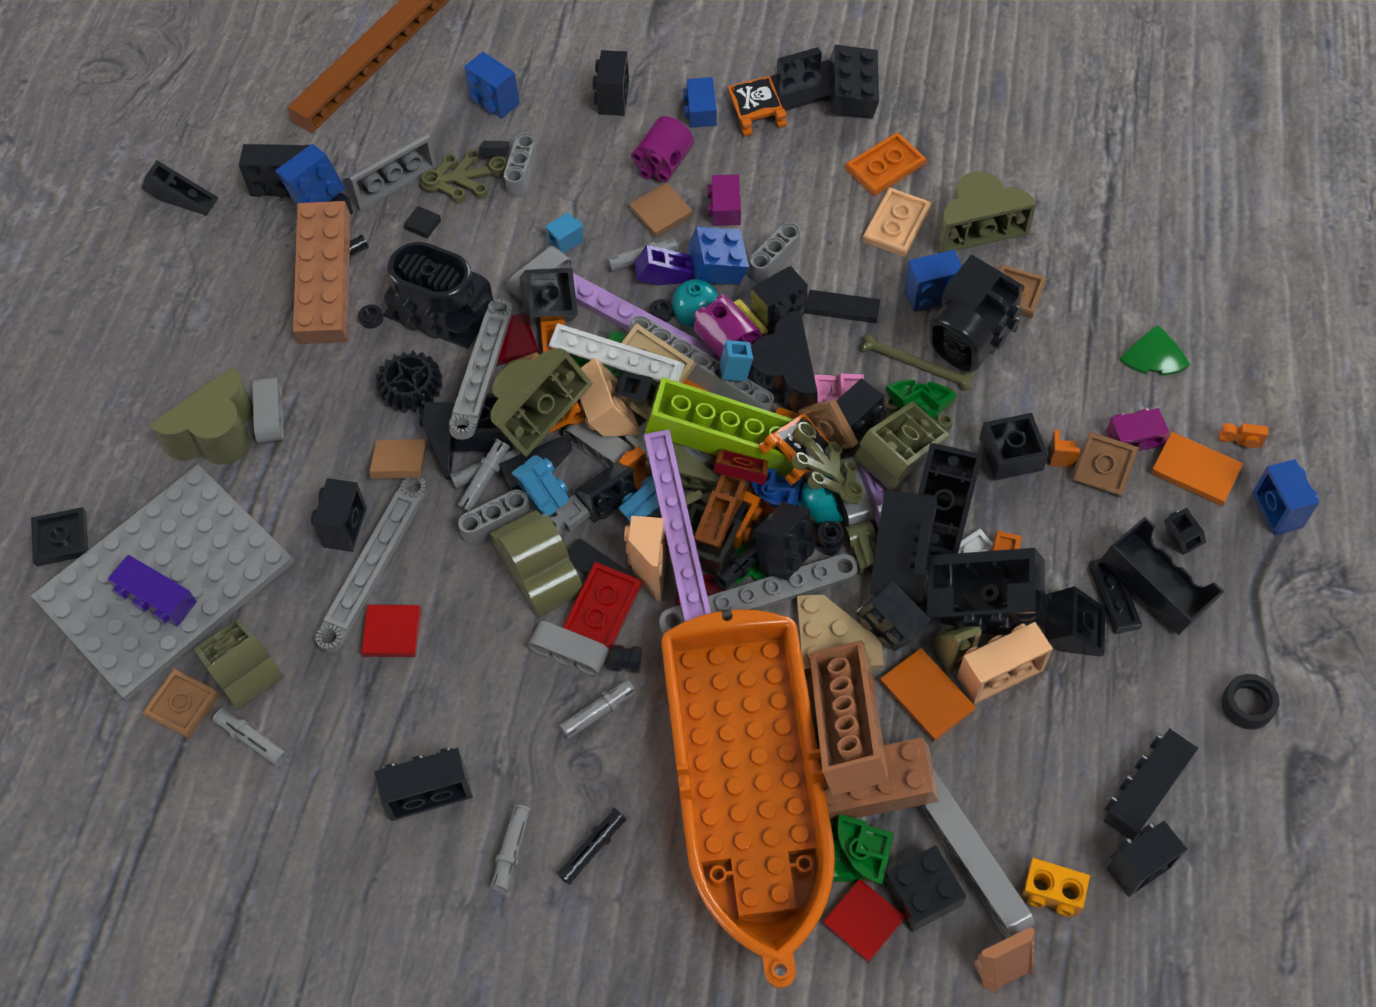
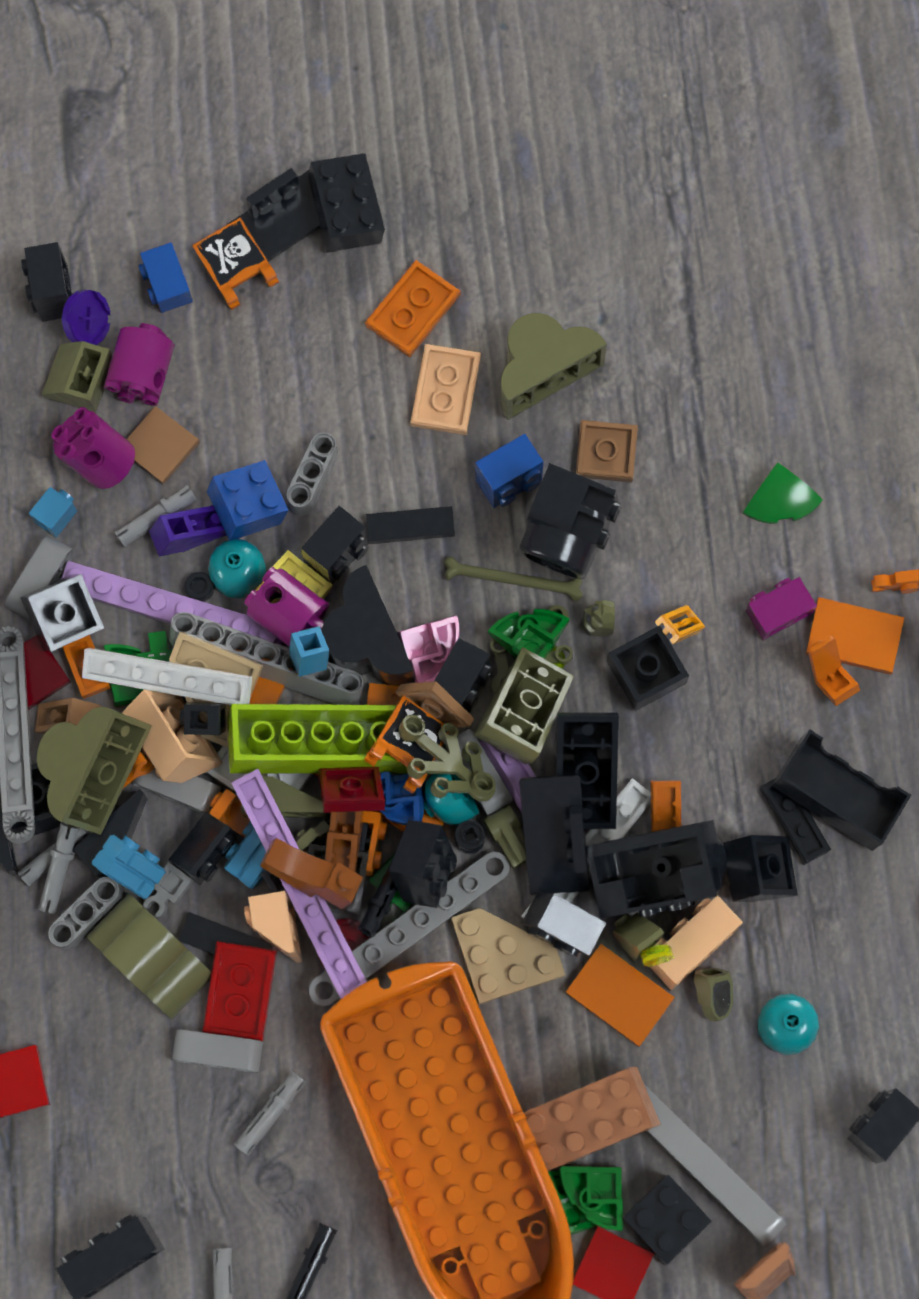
camera: 15 degrees left, 15 degrees up
(610, 192) = (93, 449): none -> magenta cylinder
(614, 149) = (78, 375): none -> olive slope
(626, 658) = (284, 1046): black wheel -> none
(632, 111) = (86, 317): none -> dark purple tile
(690, 516) = (311, 874): none -> dark orange slope
(725, 200) = (234, 414): magenta brick -> none
(848, 718) = (544, 1064): nougat brick -> none
(970, 652) = (657, 955): none -> clear neon green tile
(981, 403) = (600, 618): none -> olive rock
(1012, 712) = (714, 992): none -> olive rock
(1047, 419) = (678, 636): none -> light orange tile
(1056, 879) = (799, 1172): light orange brick -> none
(1062, 452) = (703, 655): orange panel -> none
(1073, 755) = (778, 1034): none -> teal cylinder
(1105, 463) = (753, 661): medium nougat tile -> none
(1150, 784) = (874, 1036): black brick -> none
(1168, 483) = (829, 673): none -> orange bracket
(1185, 530) = (863, 731): black brick -> none

